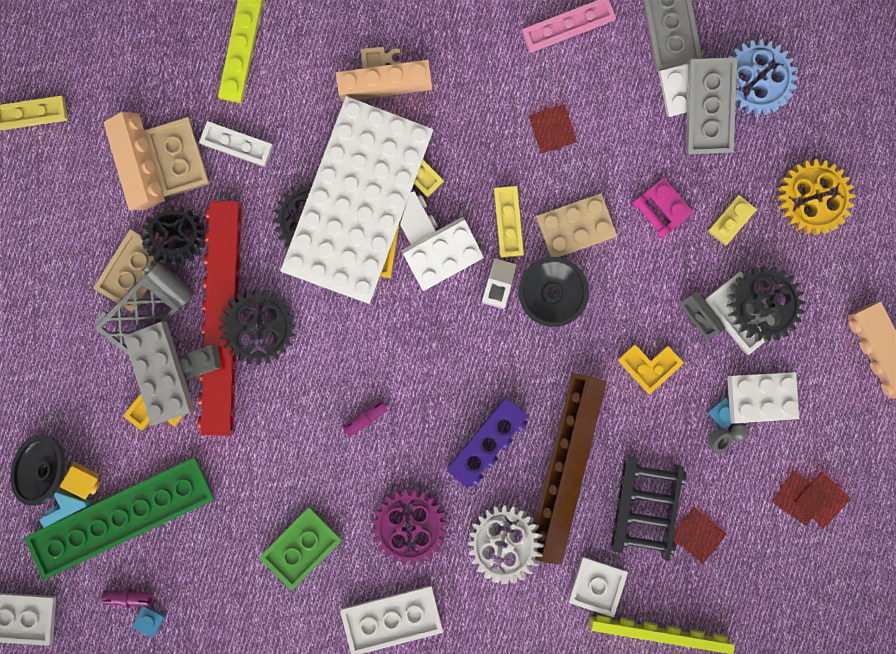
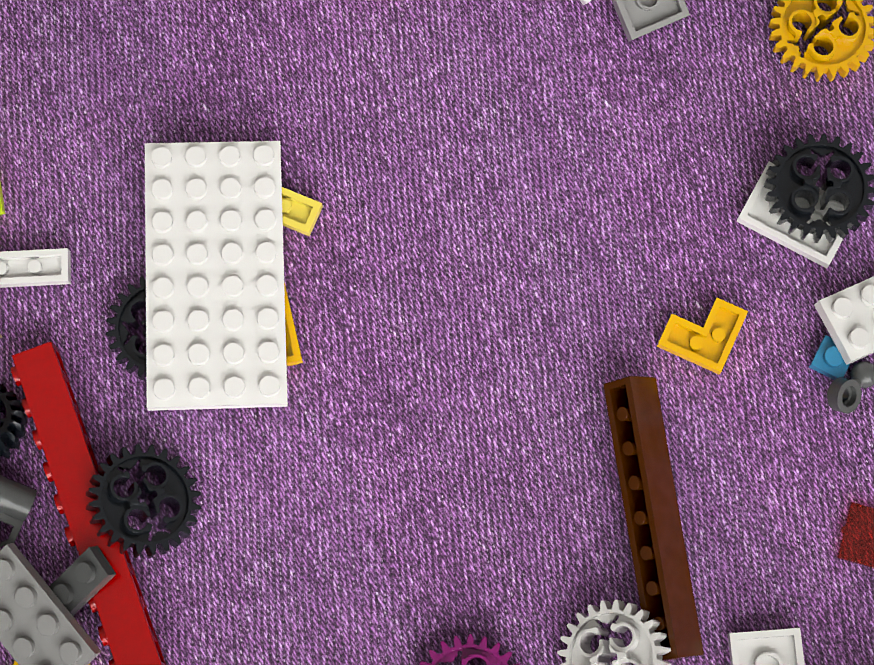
camera: 25 degrees left, 10 degrees down
(364, 418) = (344, 567): magenta pin -> none
(377, 57) = (167, 85): tan plate -> none
(384, 80) = (189, 104): light nougat brick -> none
(415, 220) = (307, 273): white slope -> none
(442, 253) = (360, 299): white plate -> none
(472, 476) = (536, 475): dark purple brick -> none
(499, 283) = (453, 309): white slope -> none
(508, 222) = (432, 223): light yellow plate -> none
(552, 129) = (439, 80): clear red piece -> none
(570, 289) = (536, 266): black dish -> none
(576, 226) = (525, 193): tan plate -> none
(625, 516) = (761, 552): black fence -> none
(667, 202) = (633, 114): dark pink plate -> none
(702, 315) = (743, 239): dark grey plate -> none
(732, 220) = (728, 102): light yellow plate -> none

